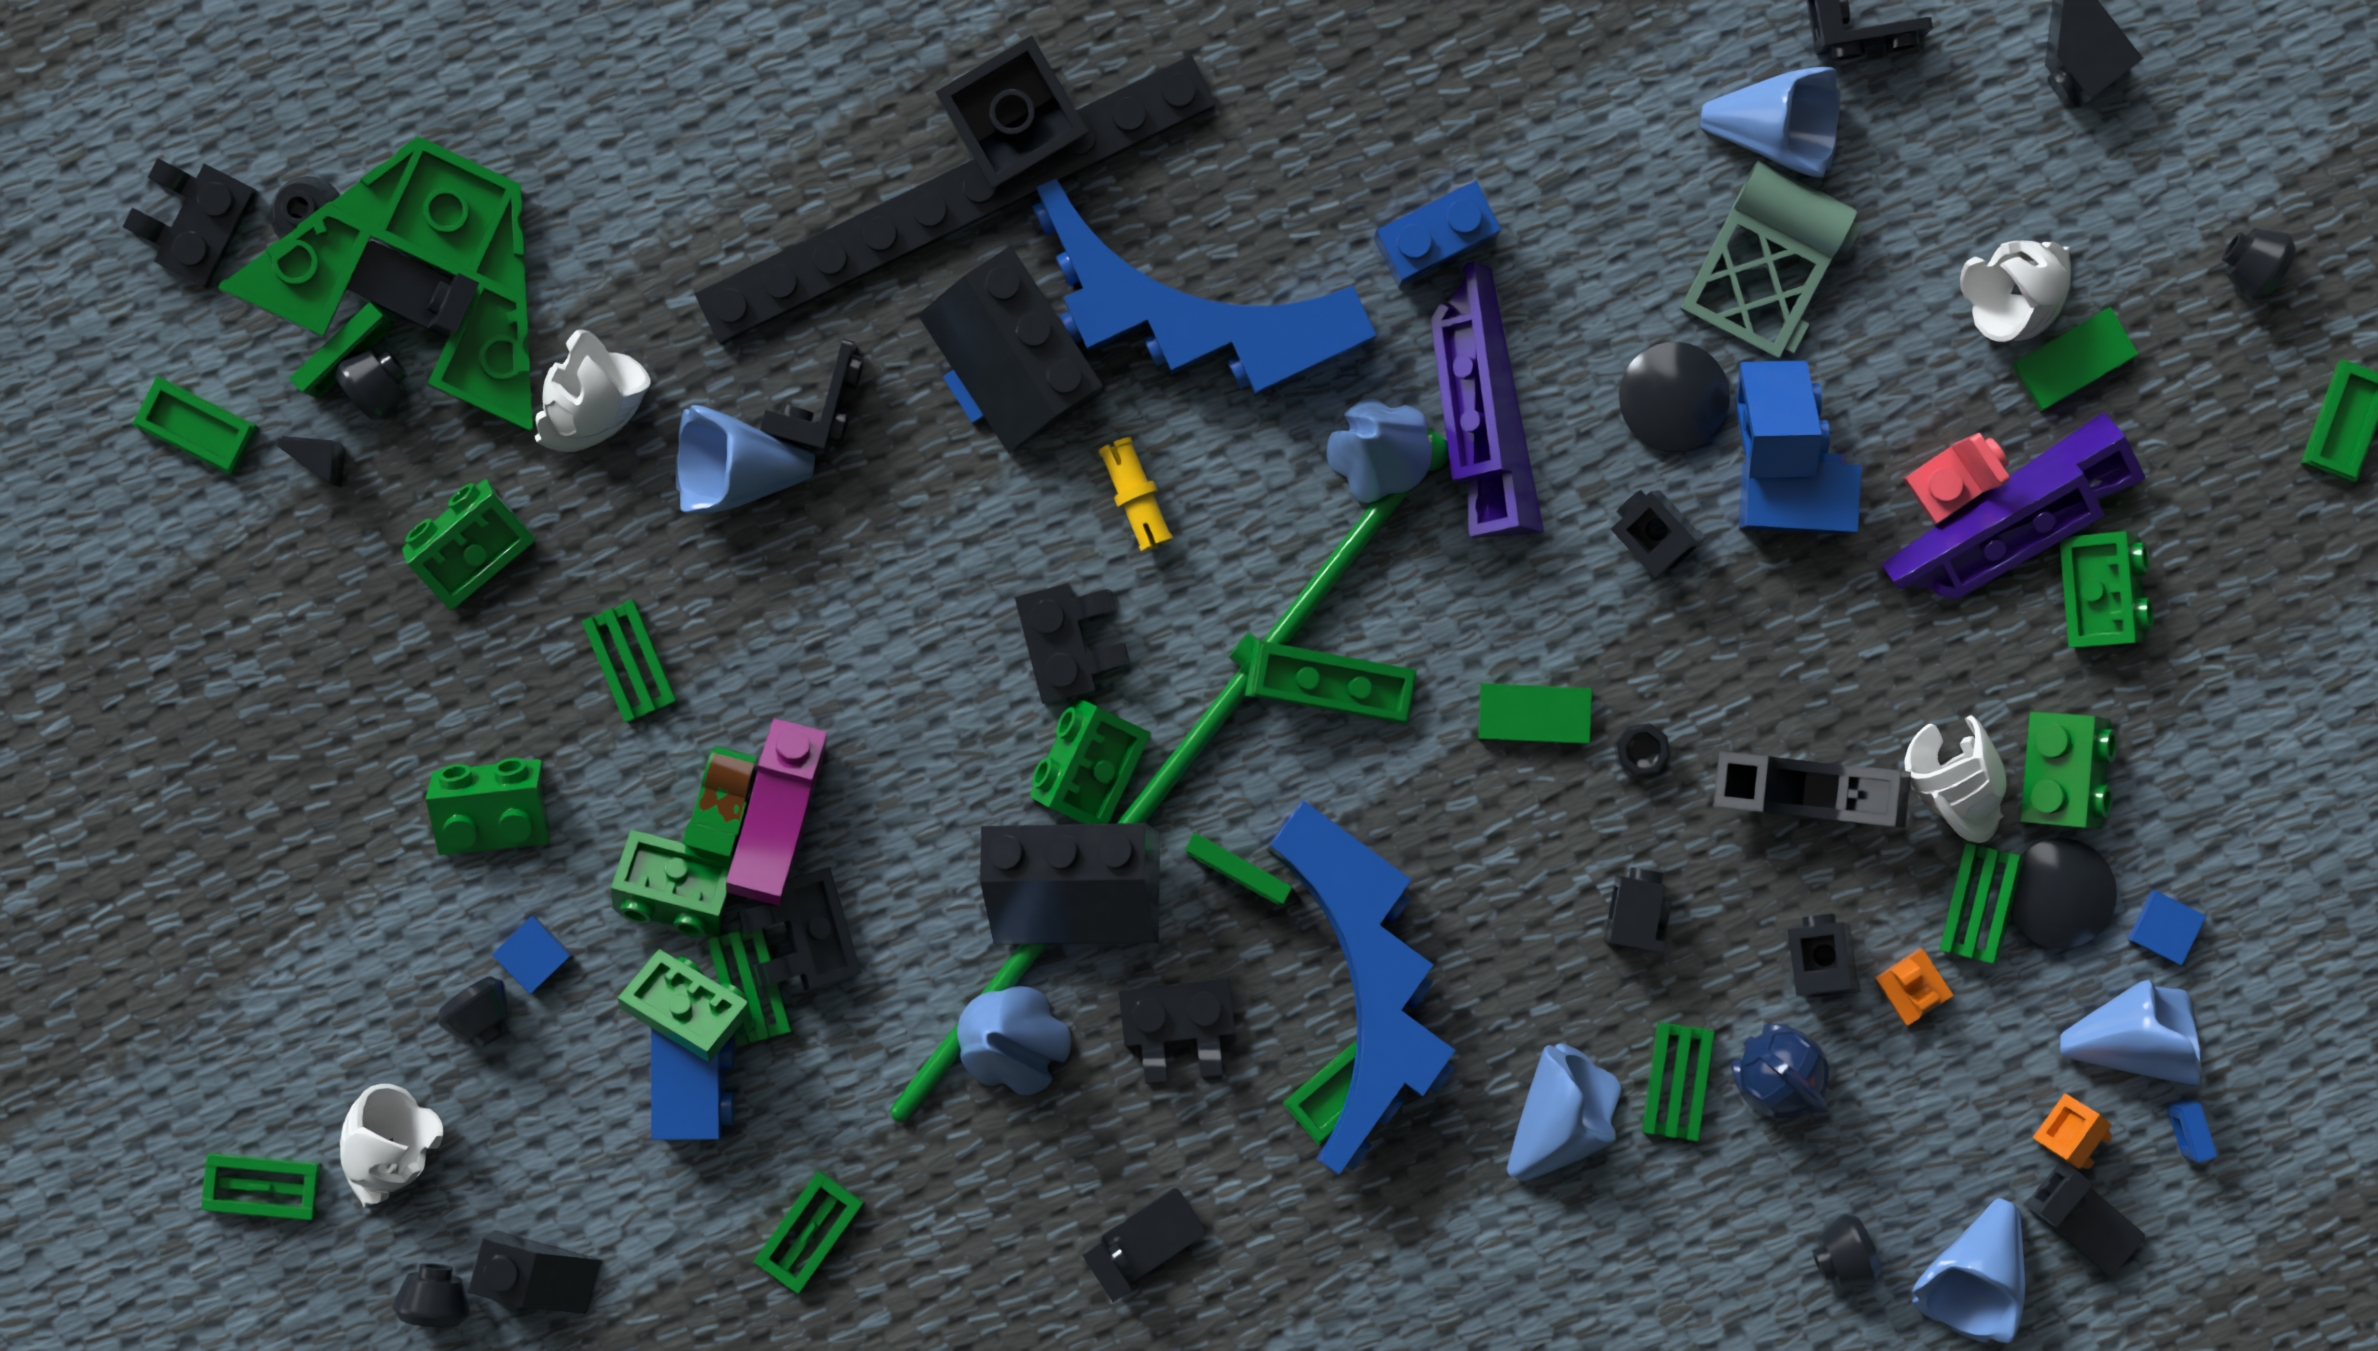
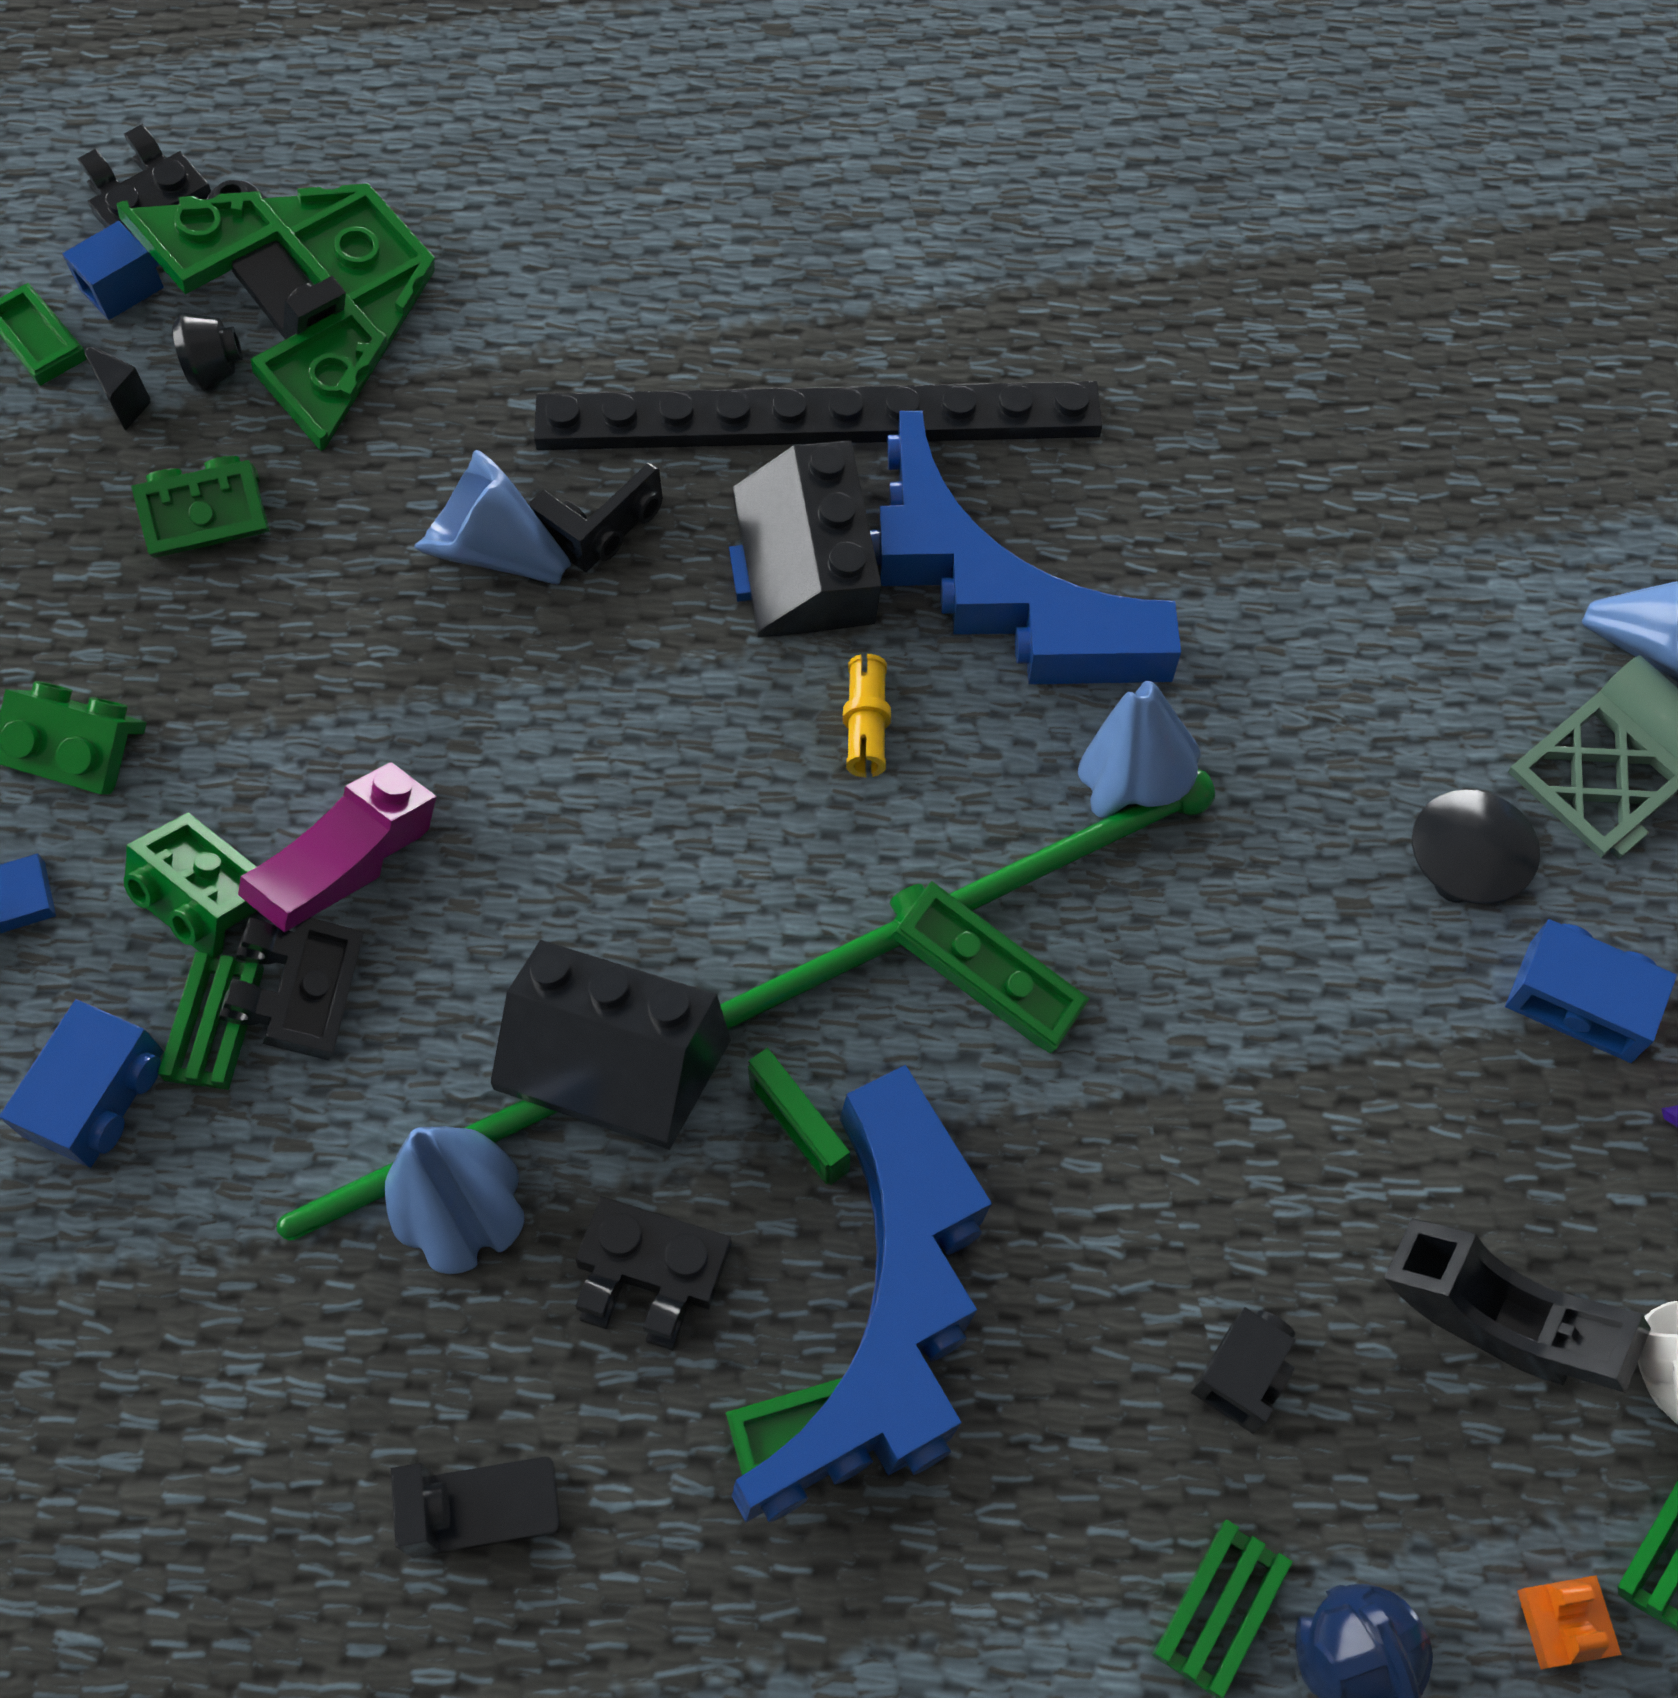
camera: 20 degrees right, 25 degrees down
(232, 332) = (113, 270): none -> blue brick
(356, 336) = (225, 301): green tile -> none
(589, 395) = (389, 434): white helmet -> none
(608, 667) = (291, 626): green tile -> none
(686, 1005) = (126, 990): bracket -> none
(722, 802) = (287, 817): leg -> none
(836, 1192) = (44, 1321): green tile -> none
(1011, 112) = (905, 339): black slope -> none
(1057, 641) = (717, 820): black plate -> none
(1088, 763) = (699, 940): green bracket -> none
(1437, 233) = (1278, 599): blue brick -> none
(1483, 410) = (1262, 785): dark purple wedge -> none
(1534, 713) = (1204, 1100): green tile -> none
(1563, 1114) = (1061, 1582): medium blue hat -> none
(1633, 530) = (1426, 984): black brick -> none
(1642, 750) = (1316, 1187): black tile -> none
(1780, 419) = (1596, 893): blue brick -> none
(1809, 976) = (1455, 1555): black brick -> none

